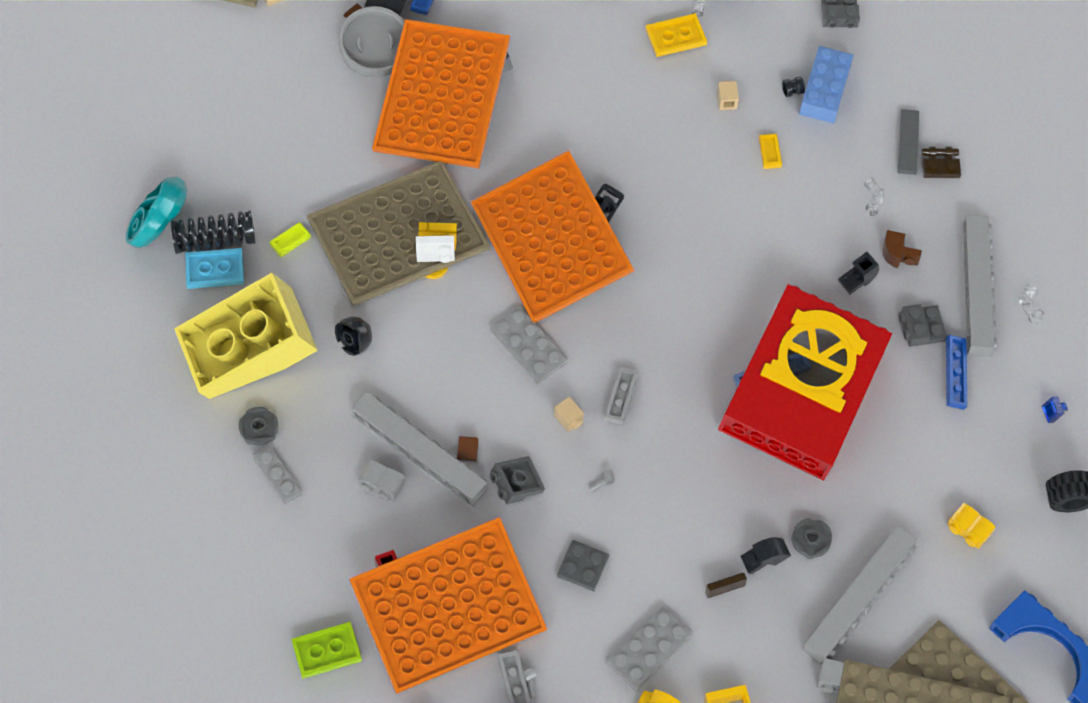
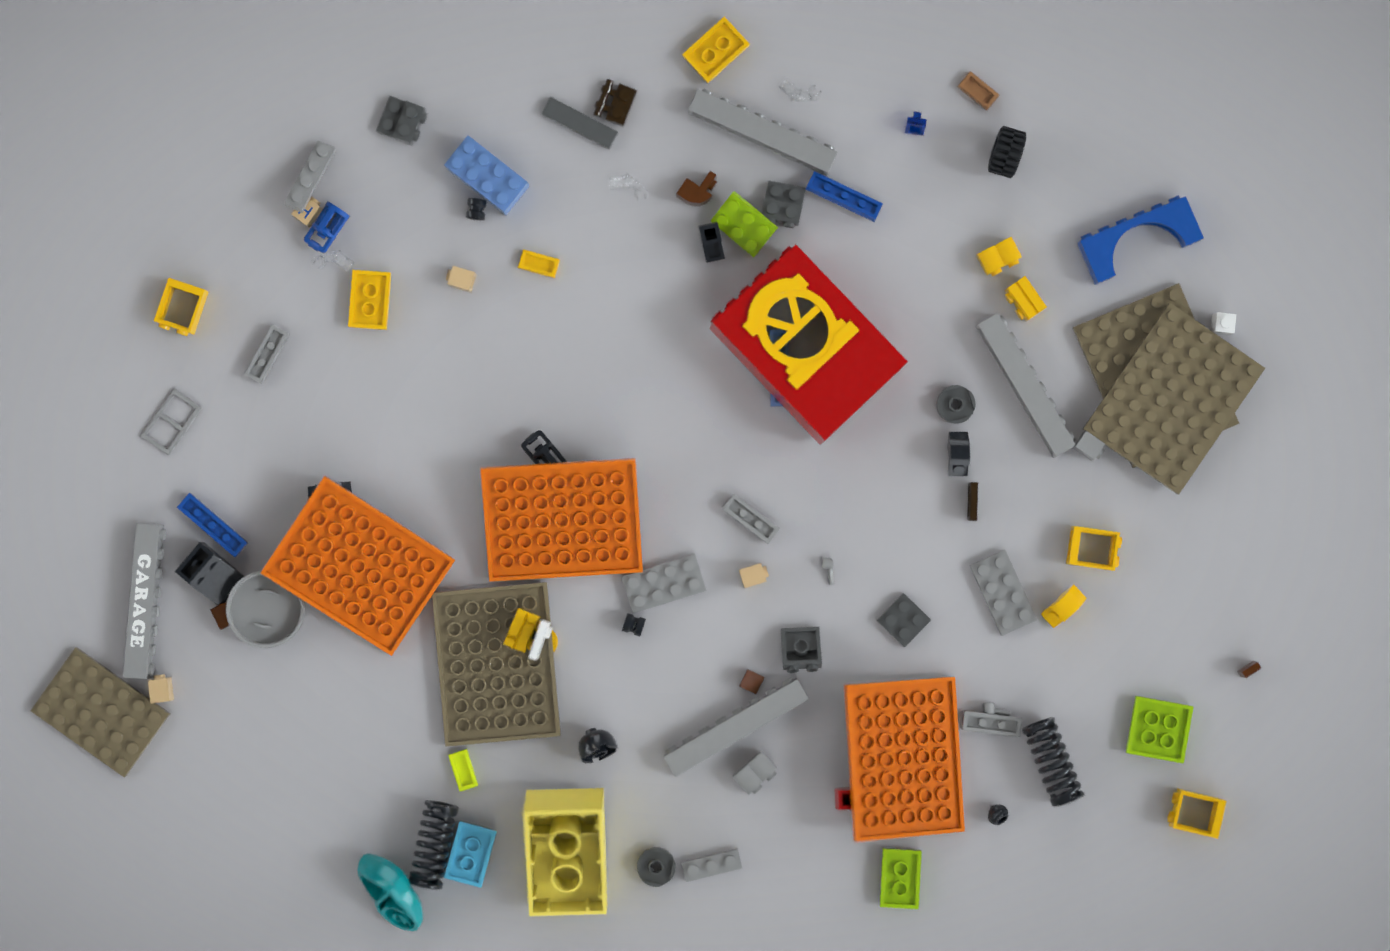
camera: 65 degrees left, 25 degrees up
(480, 330) = (629, 624): none -> black wheel
(888, 296) = (744, 224): none -> lime plate
(943, 563) = (1025, 299): none -> yellow brick
(1030, 224) = (716, 49): none -> yellow plate

